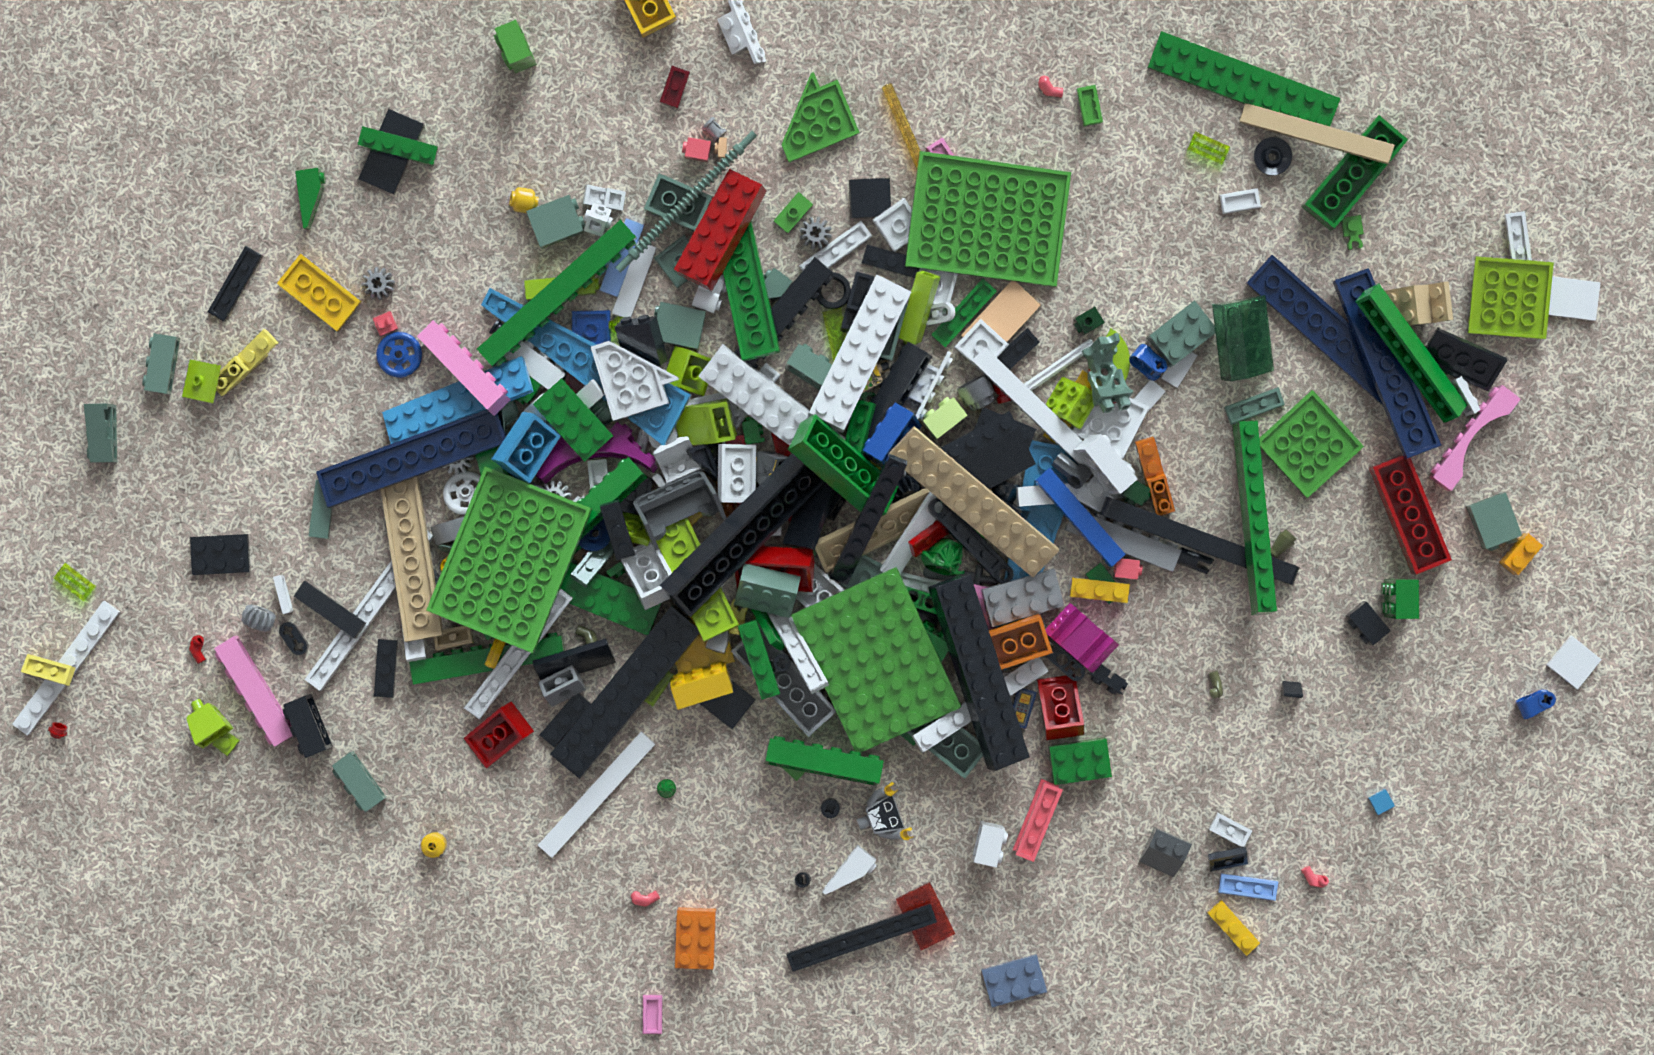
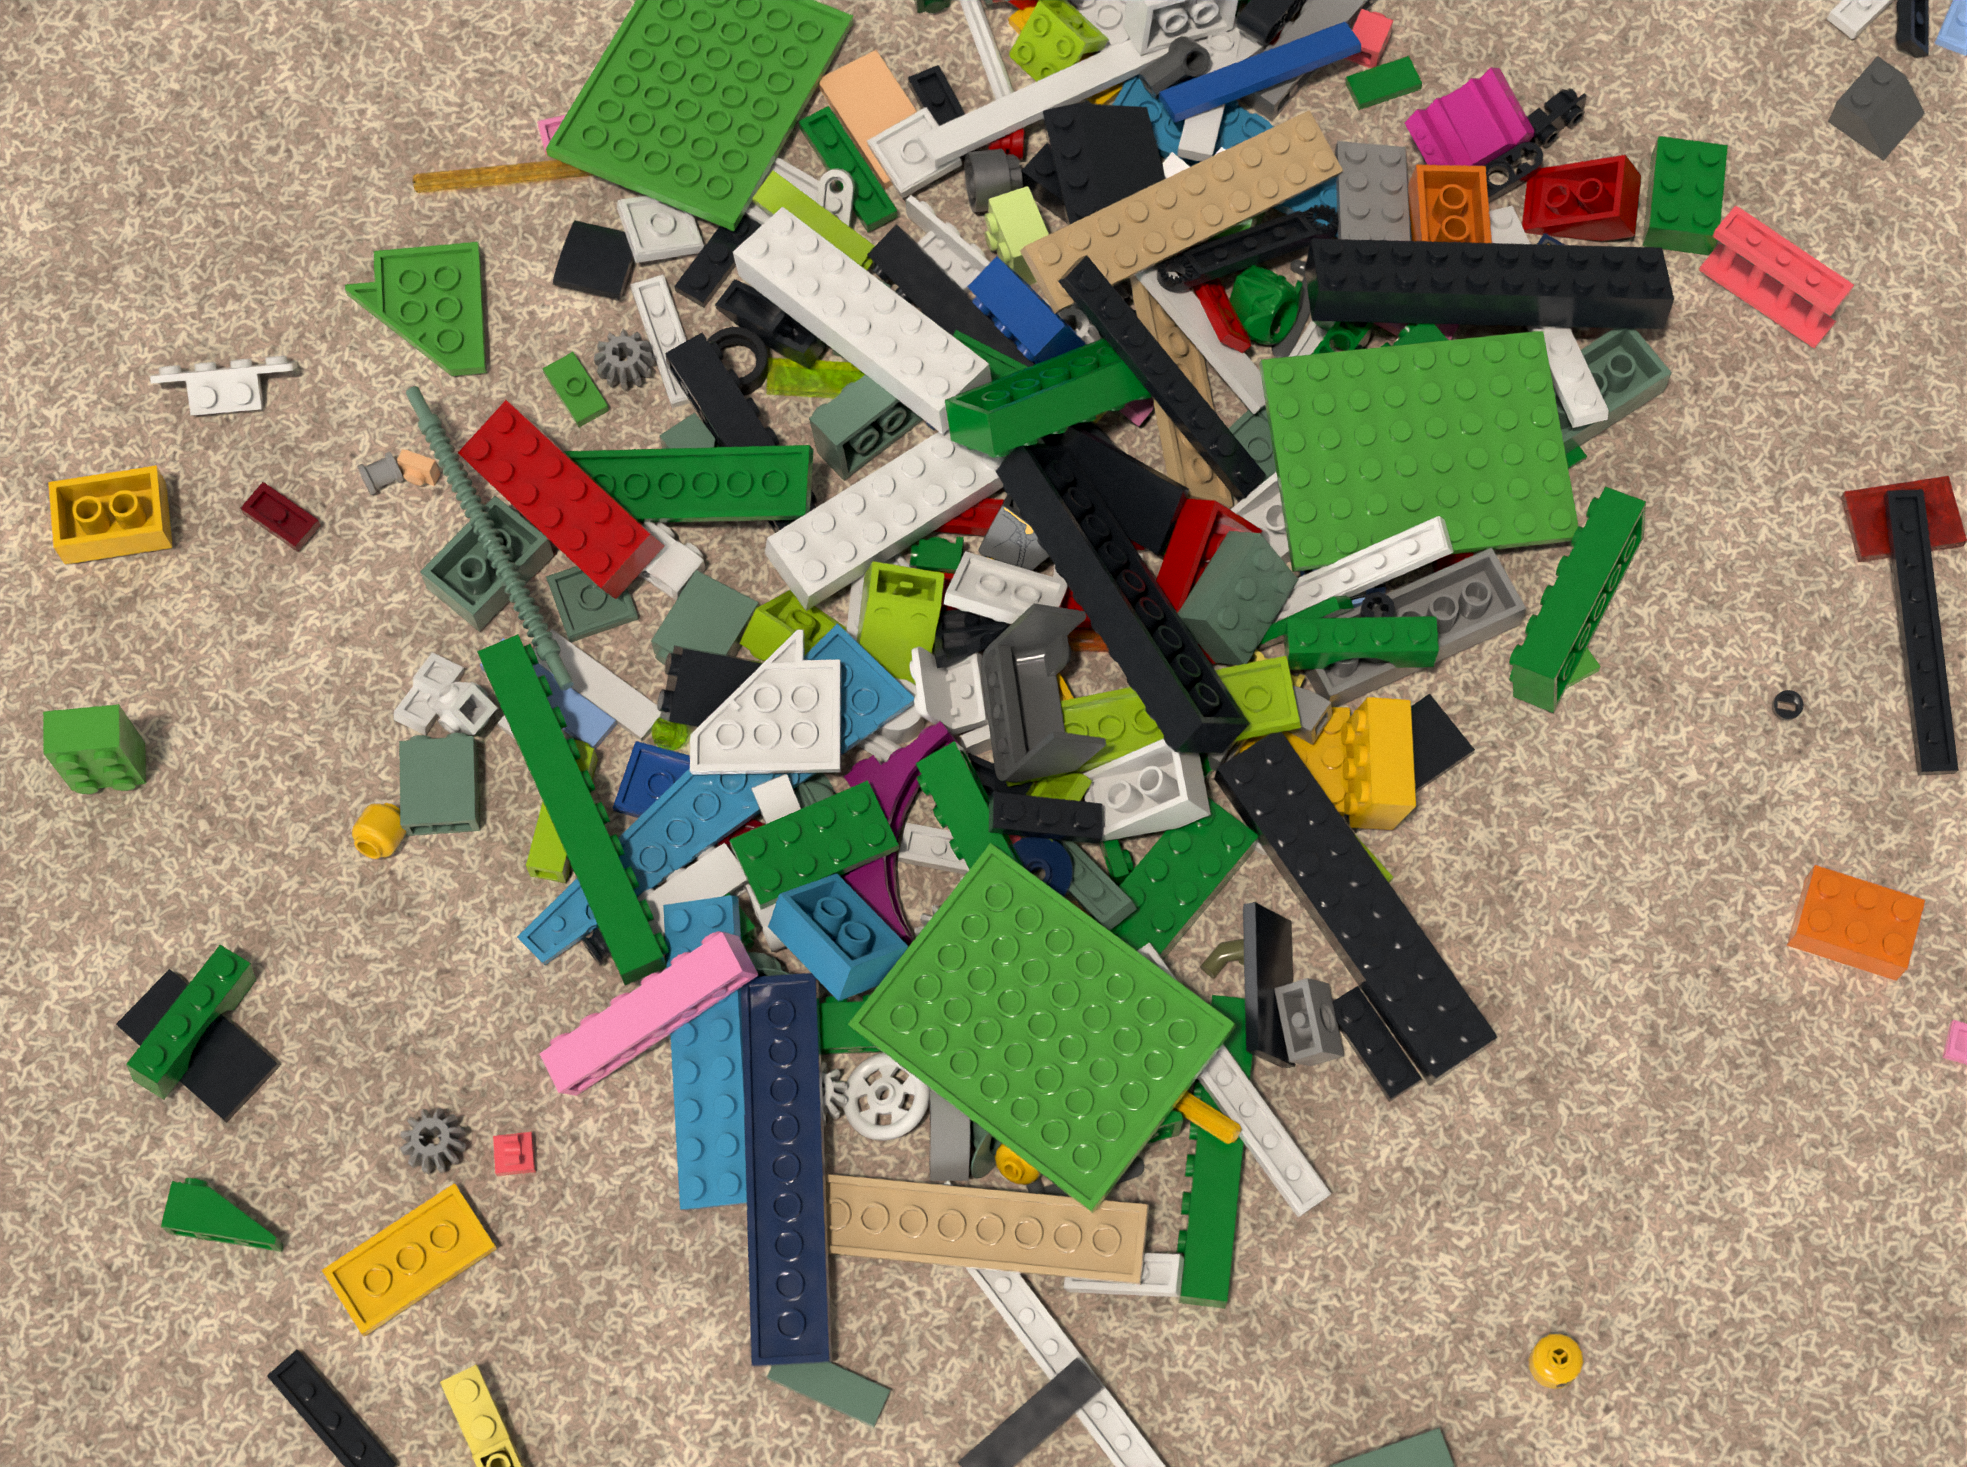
camera: 70 degrees left, 20 degrees down
(385, 668) = (1179, 1355): black plate -> none
(408, 341) = (580, 1178): blue plate -> none
(454, 637) = (1159, 1190): tan slope -> none
(498, 734) = (1370, 1174): red slope -> none
(596, 794) = (1534, 1030): white tile -> none
(642, 900) = (1760, 997): coral arm -> none
(666, 788) = (1555, 897): green plate -> none
(697, 149) = (404, 509): coral brick -> none
(828, 805) = (1661, 630): black wheel -> none
(853, 868) = (1787, 614): white slope -> none
(884, 815) = (1702, 533): torso -> none
(989, 844) = (1798, 370): white brick -> none
(1099, 590) = (1393, 88): yellow plate -> none

